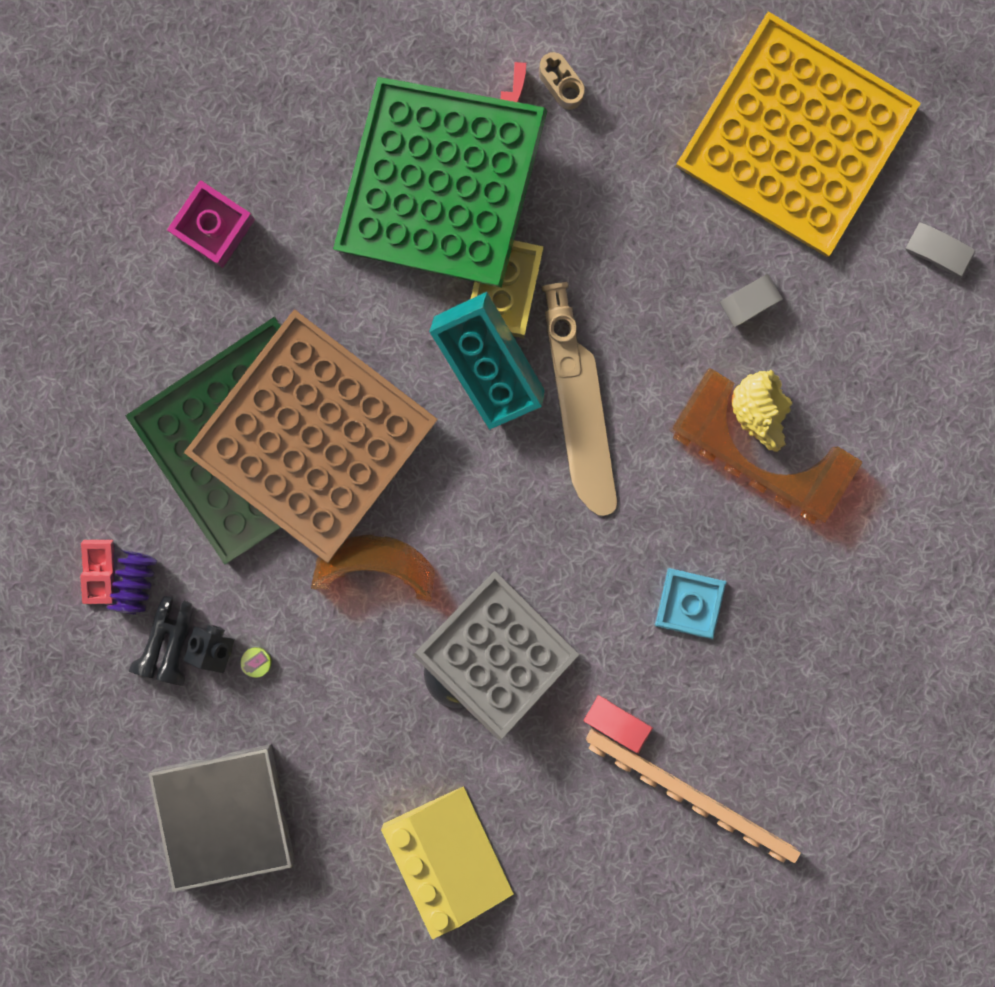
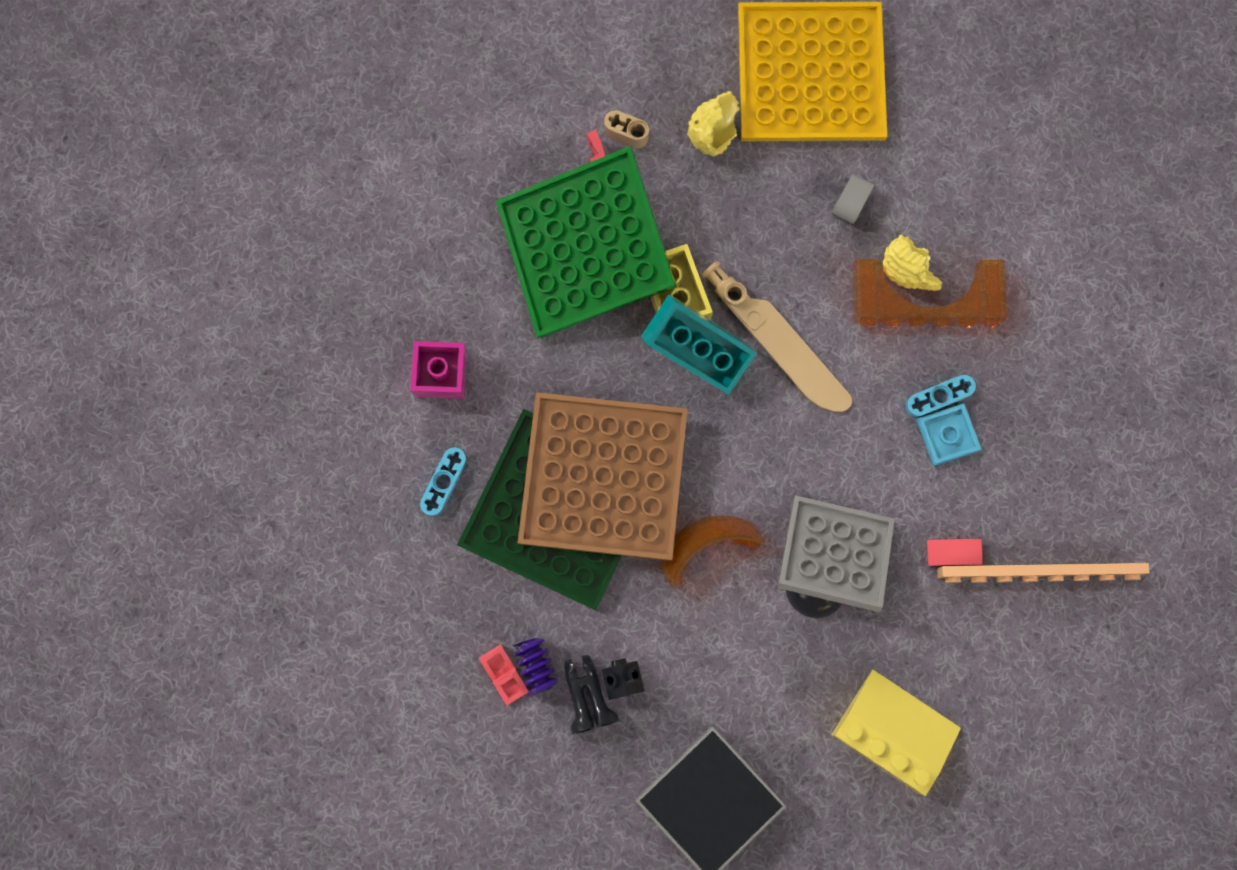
camera: 30 degrees left, 10 degrees down
(136, 360) = (458, 468): none -> medium azure beam
(256, 662) = (662, 670): tile -> none
(655, 132) = (713, 124): none -> light yellow piece
(727, 570) = (960, 395): none -> medium azure beam
(940, 249) = (959, 88): light grey slope -> none

